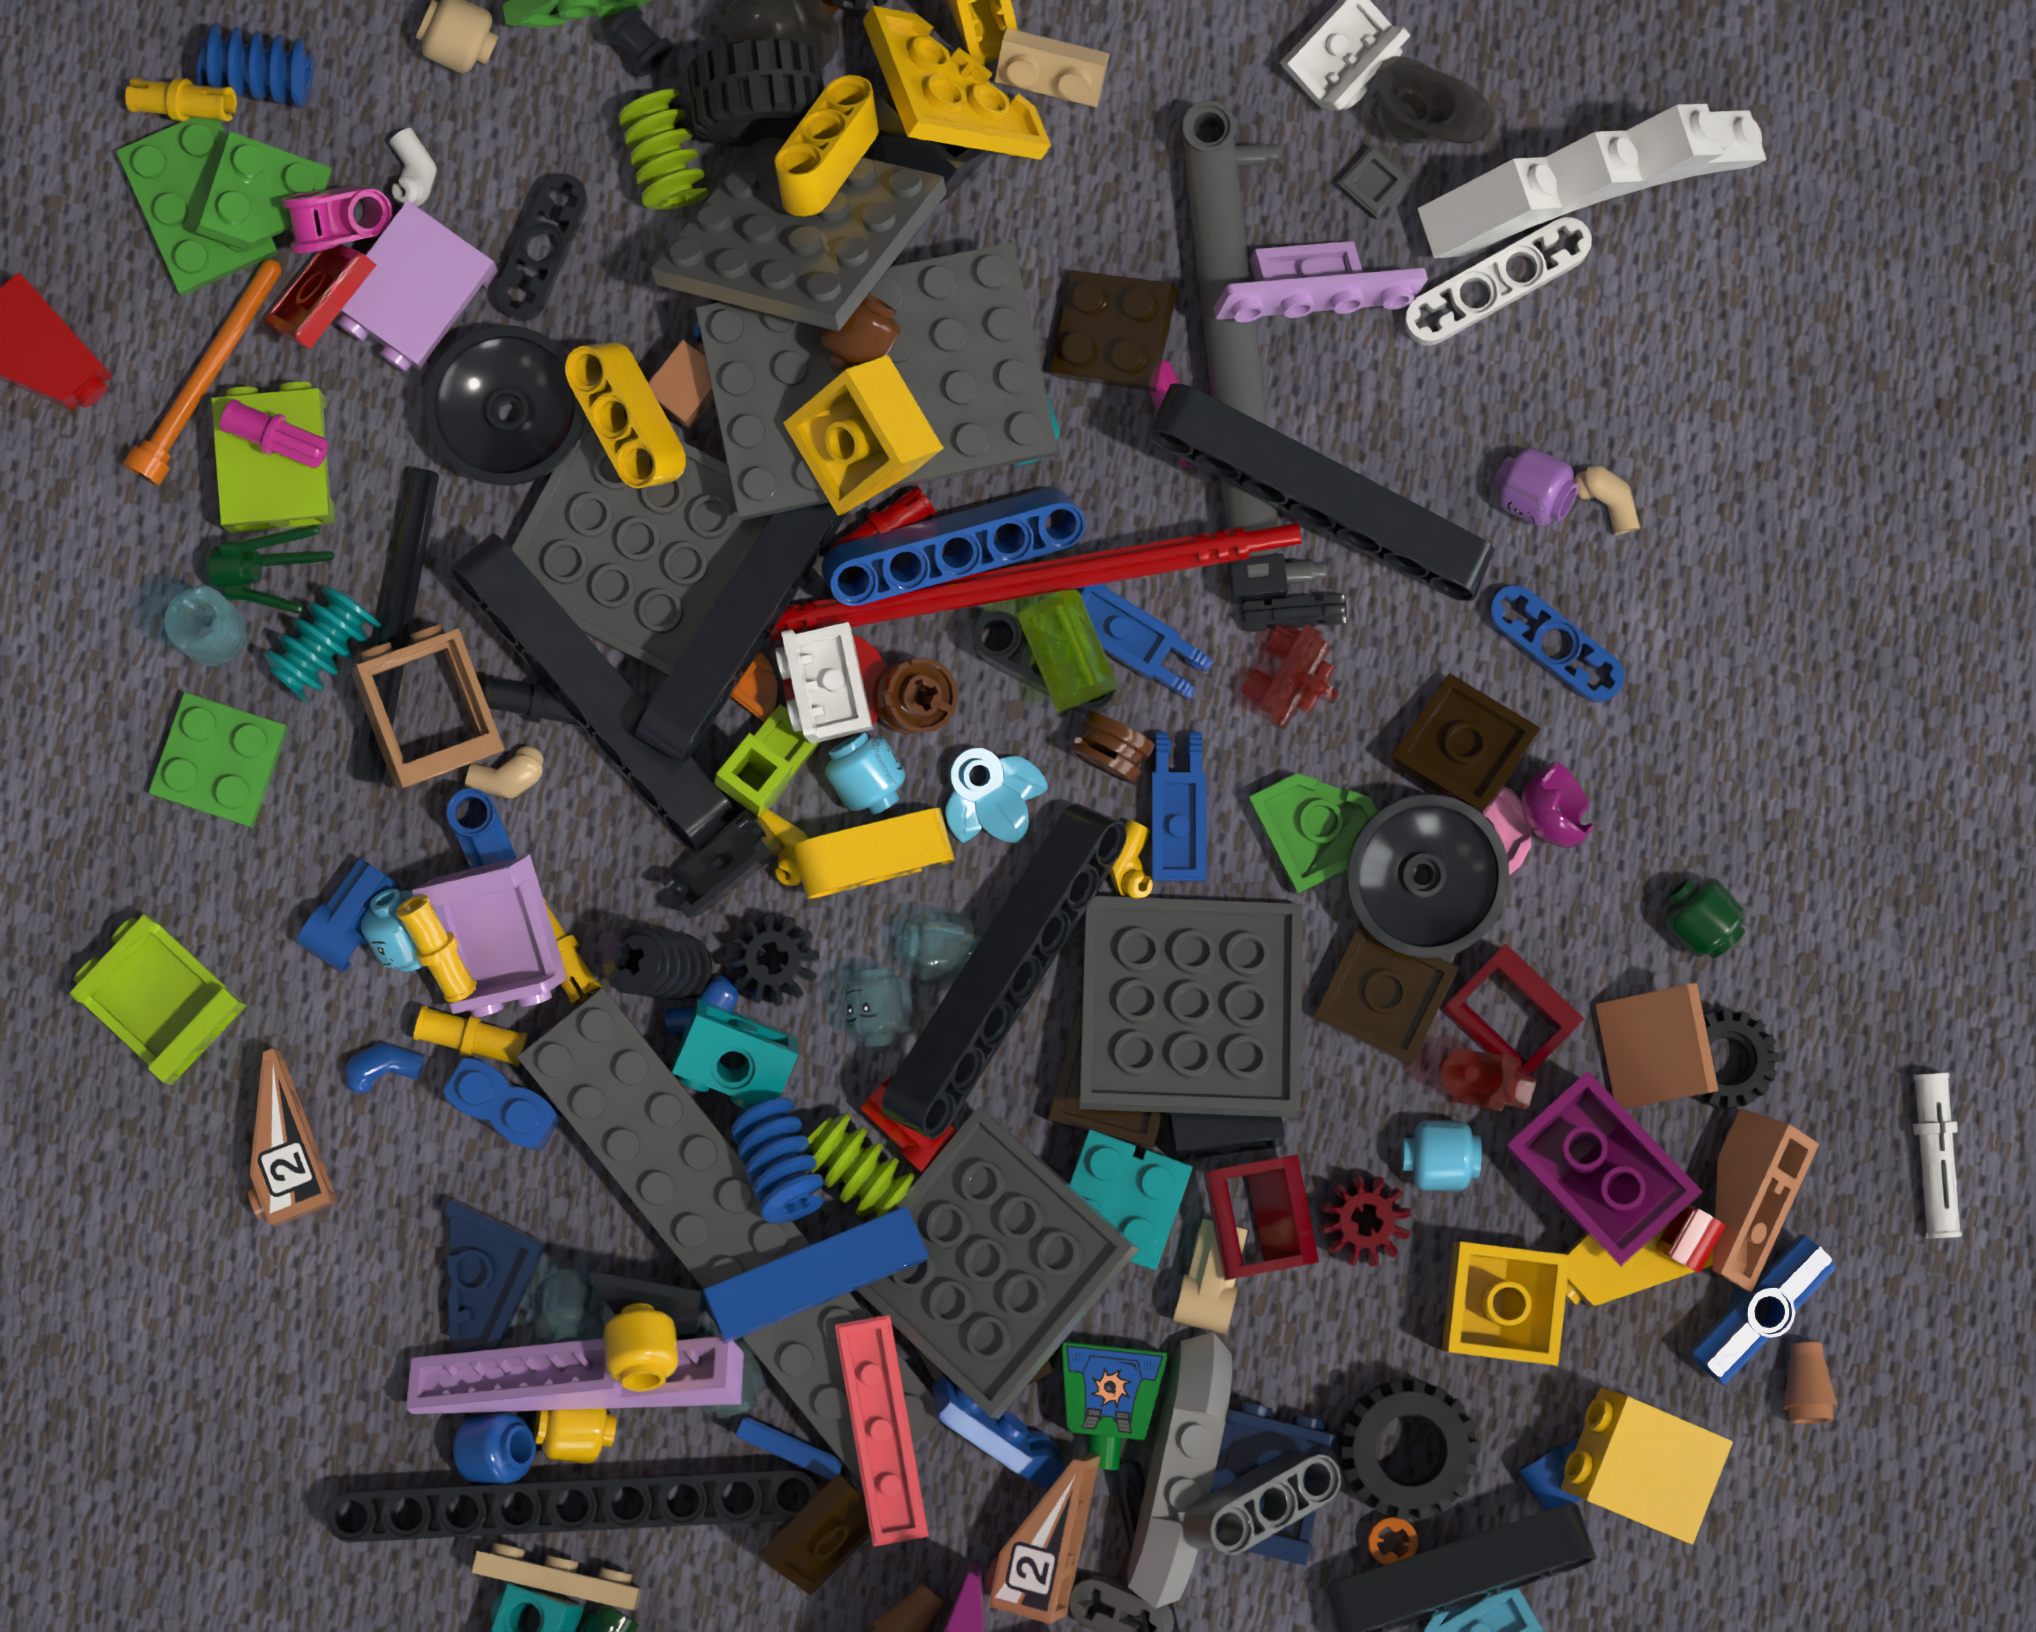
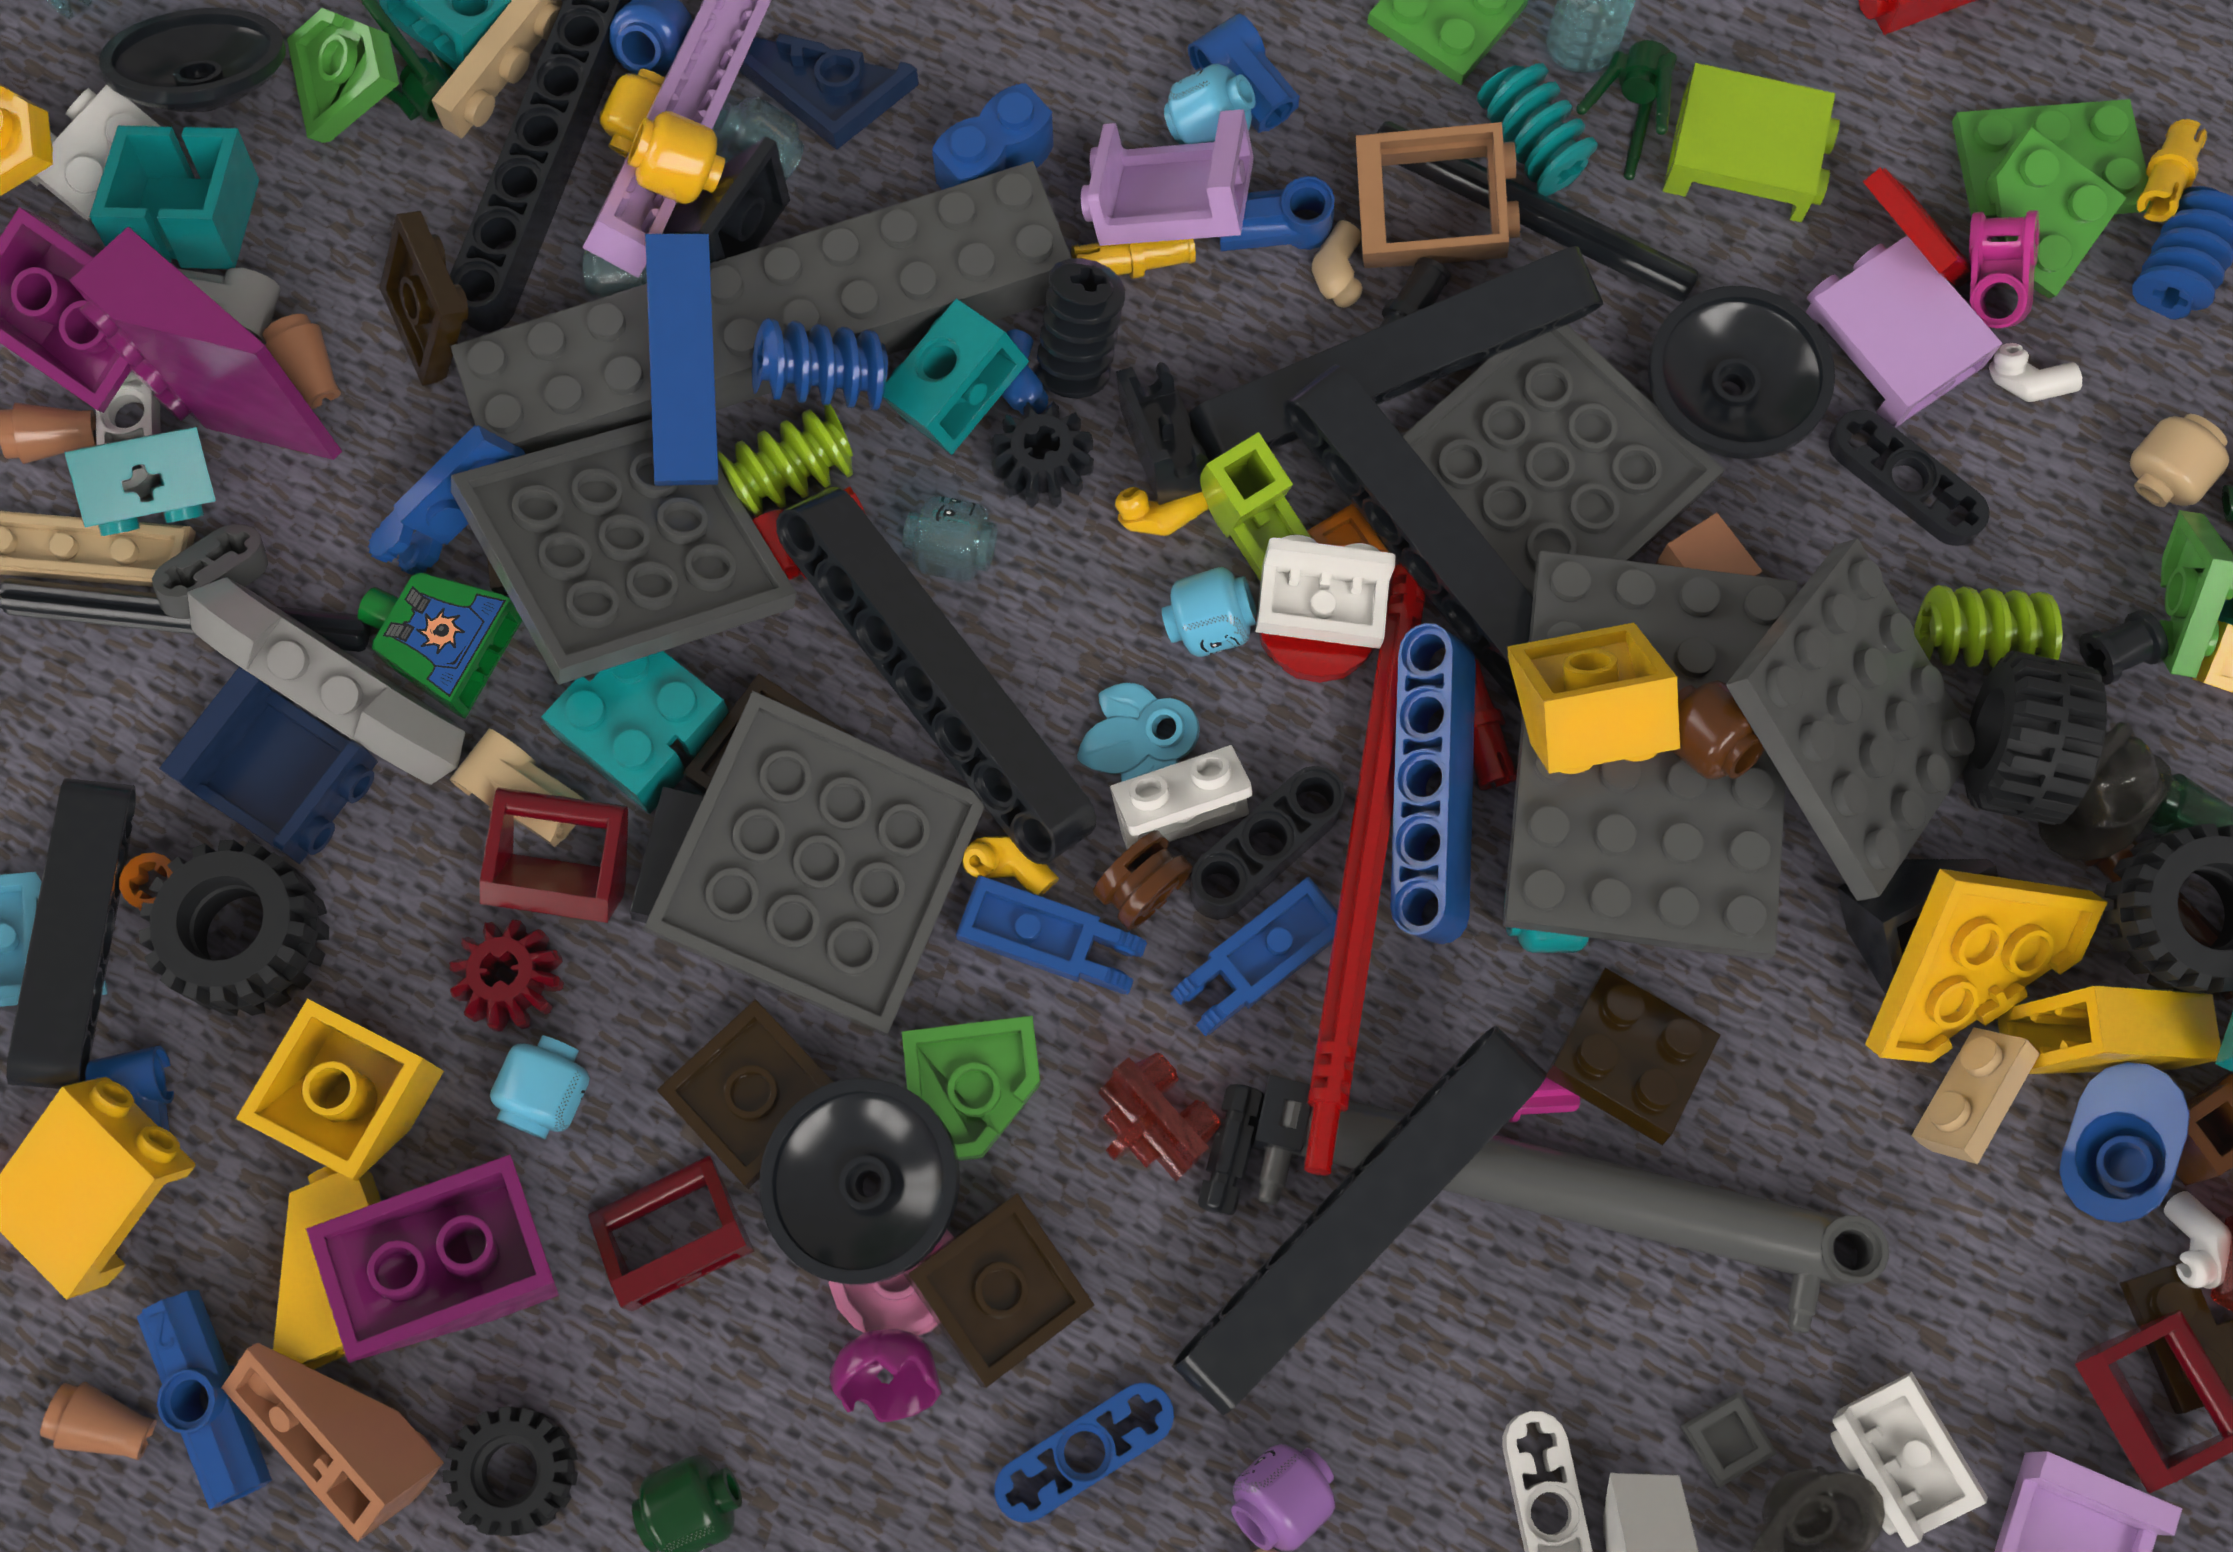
camera: 110 degrees right, 10 degrees down
(152, 455) = (1786, 37): orange piece -> none
(274, 434) = (1779, 127): dark pink axle -> none
(378, 1060) = (1086, 60): blue arm -> none
(436, 948) = (1175, 118): yellow pin -> none
(469, 1036) = (1075, 144): yellow pin -> none
(646, 428) = (1694, 479): yellow beam -> none
(789, 1447) = (541, 293): blue tile -> none
(826, 145) = (1952, 776): yellow beam -> none
(872, 853) = (1117, 587): yellow beam -> none
(881, 1430) = (493, 373): coral tile -> none
(916, 695) = (1277, 690): reddish brown wheel -> none
(938, 945) = (995, 624): clear light blue head -> none
(1036, 739) = (1183, 797): none -> white bracket
(1042, 1557) = (296, 503): nougat slope -> none
(1067, 649) = (1271, 862): clear neon green slope -> none
(1239, 1502) = (225, 763): dark grey beam -> none
(1312, 280) = (1626, 1310): lavender bracket -> none
(1484, 1080) = (597, 1161): clear red hips -> none
(1657, 1046) = (554, 1386): nougat tile -> none
(1691, 1238) = (303, 1331): brick -> none

